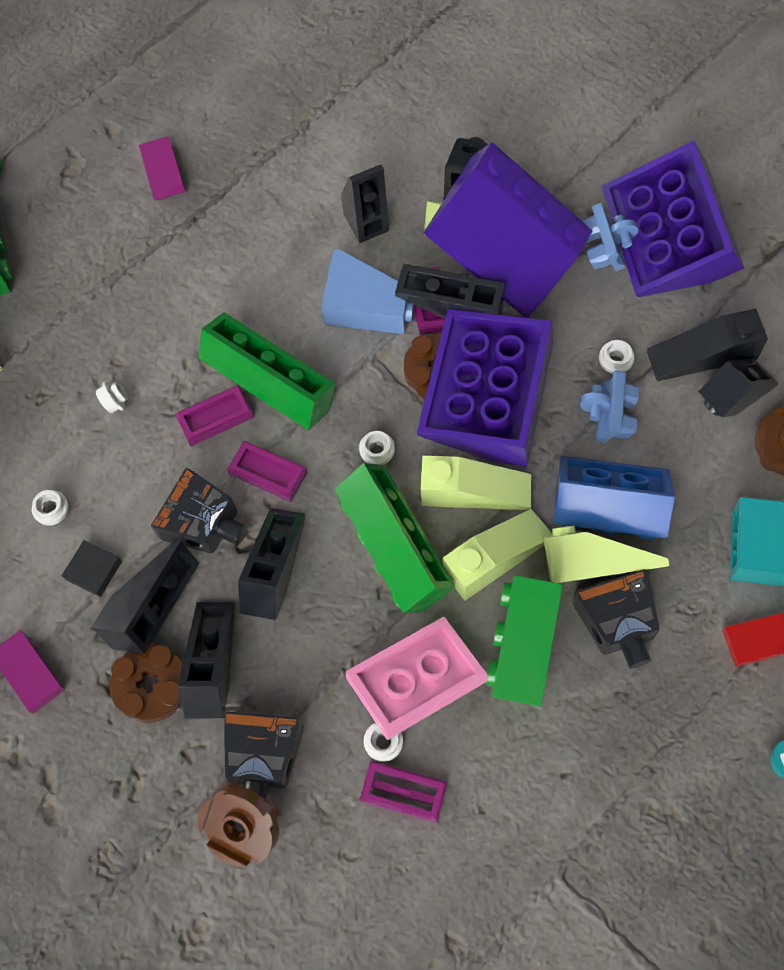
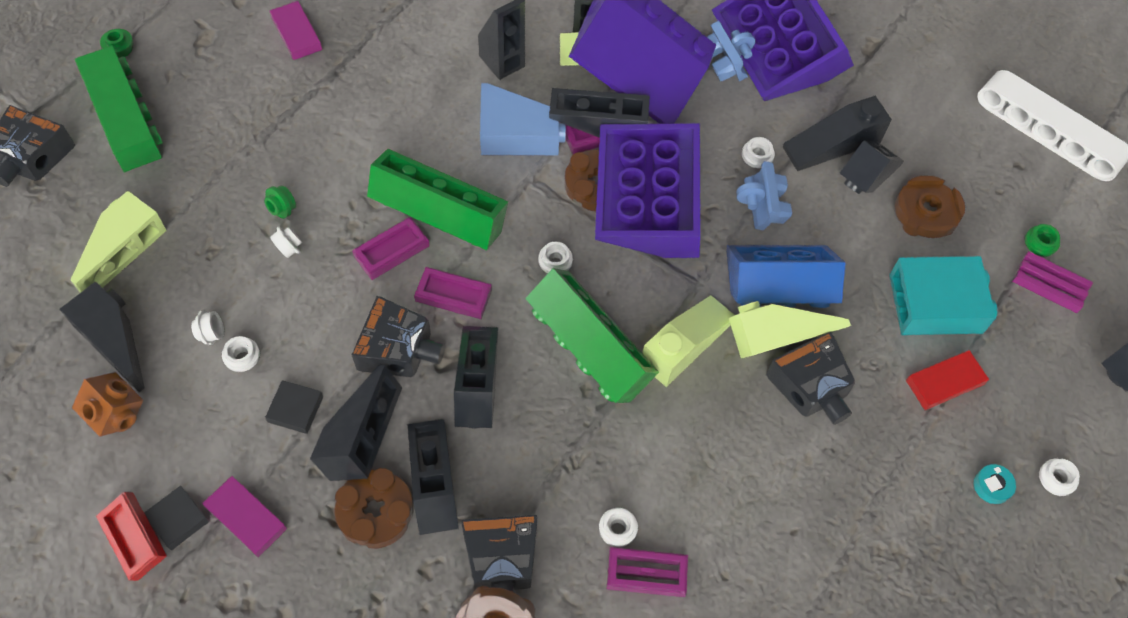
camera: 20 degrees left, 5 degrees down
(23, 476) = (207, 327): none -> white plate
(112, 353) = (279, 201): none -> green plate
(416, 677) = (639, 461): bright pink plate -> none
(473, 484) = (652, 279): yellowish green slope -> none
(524, 640) = (740, 405): green brick -> none

